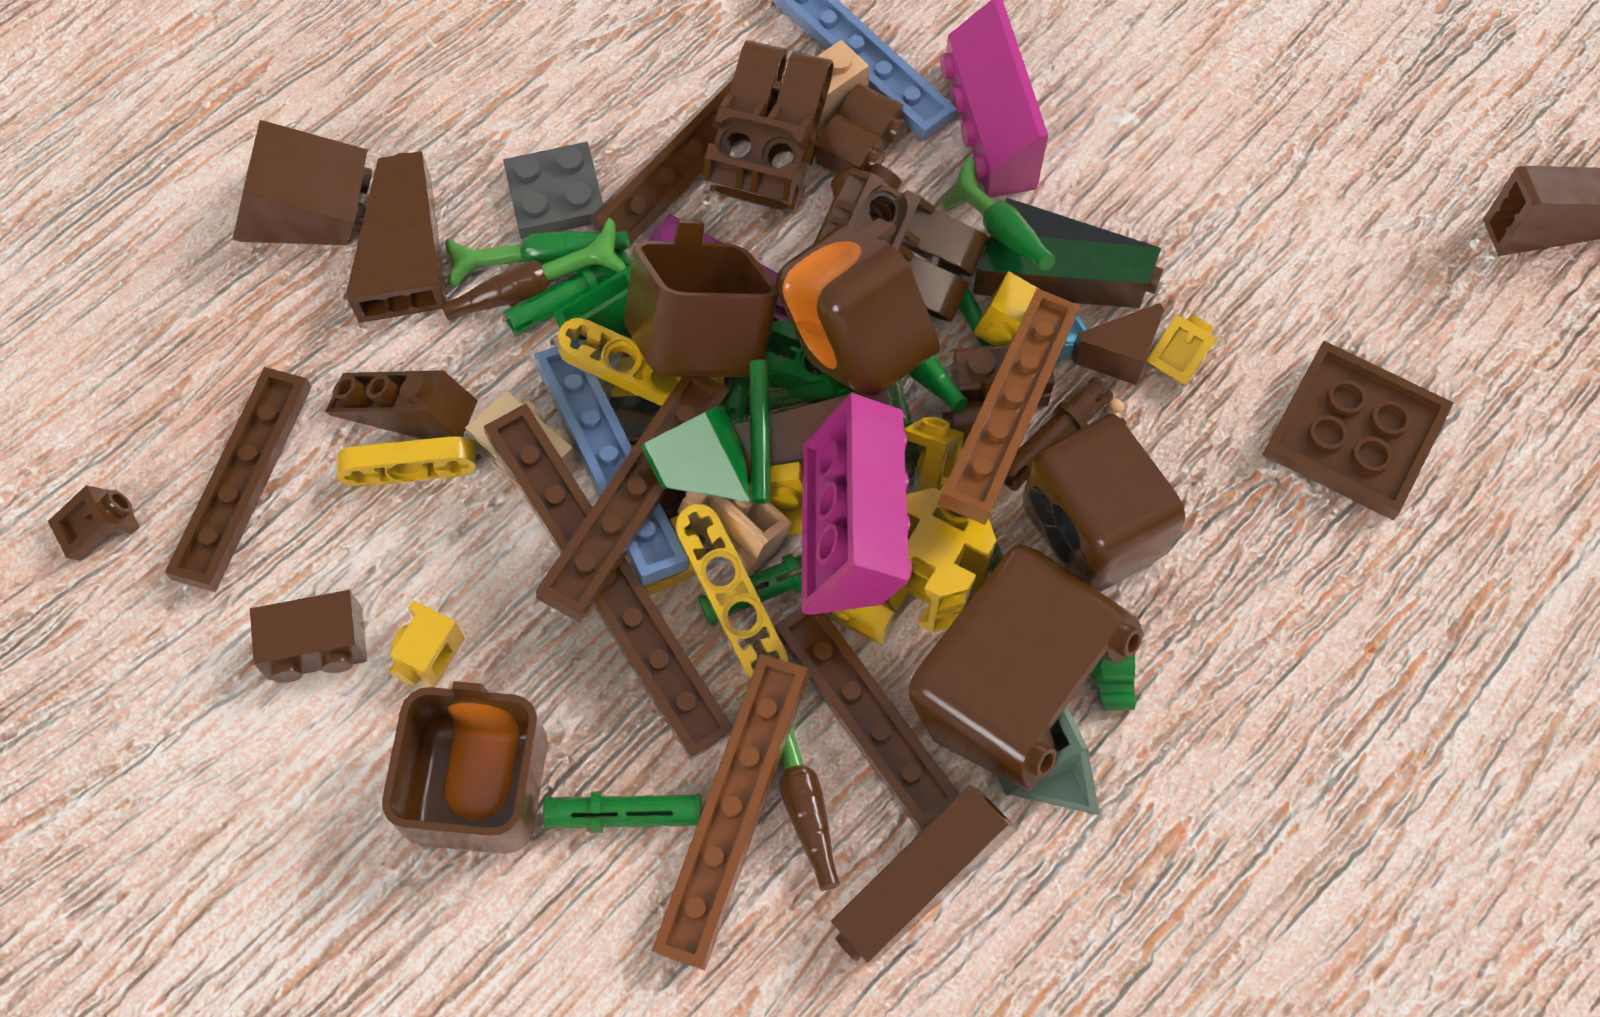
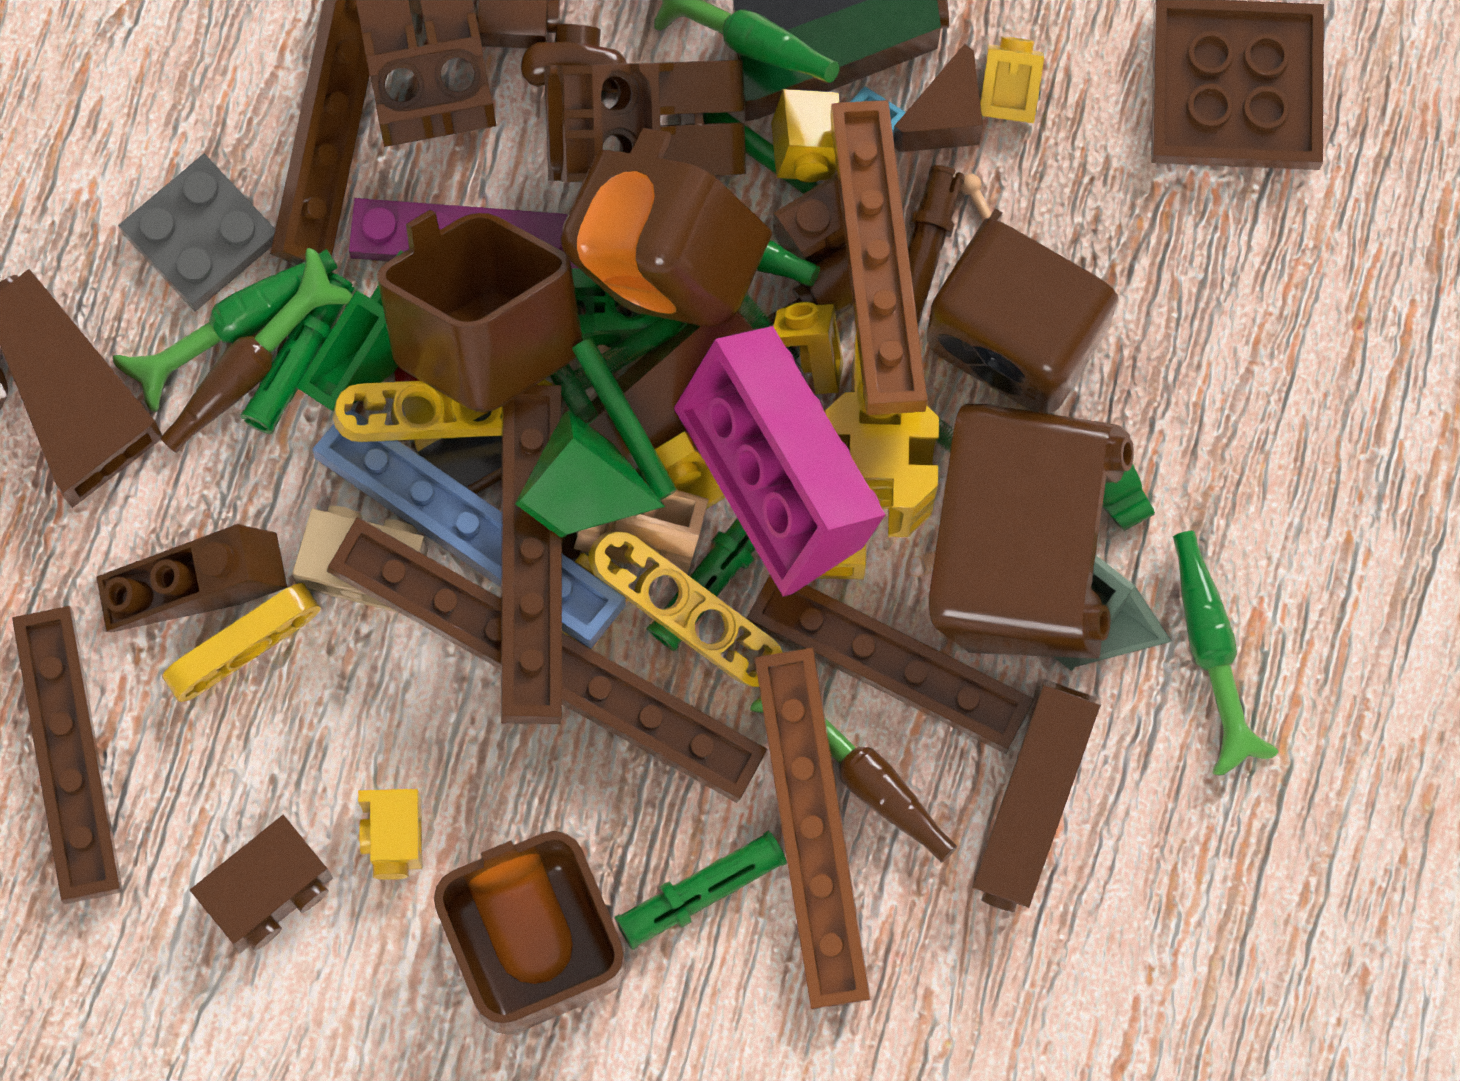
camera: 30 degrees left, 10 degrees up
(1130, 838) = (1215, 650): none -> green piece

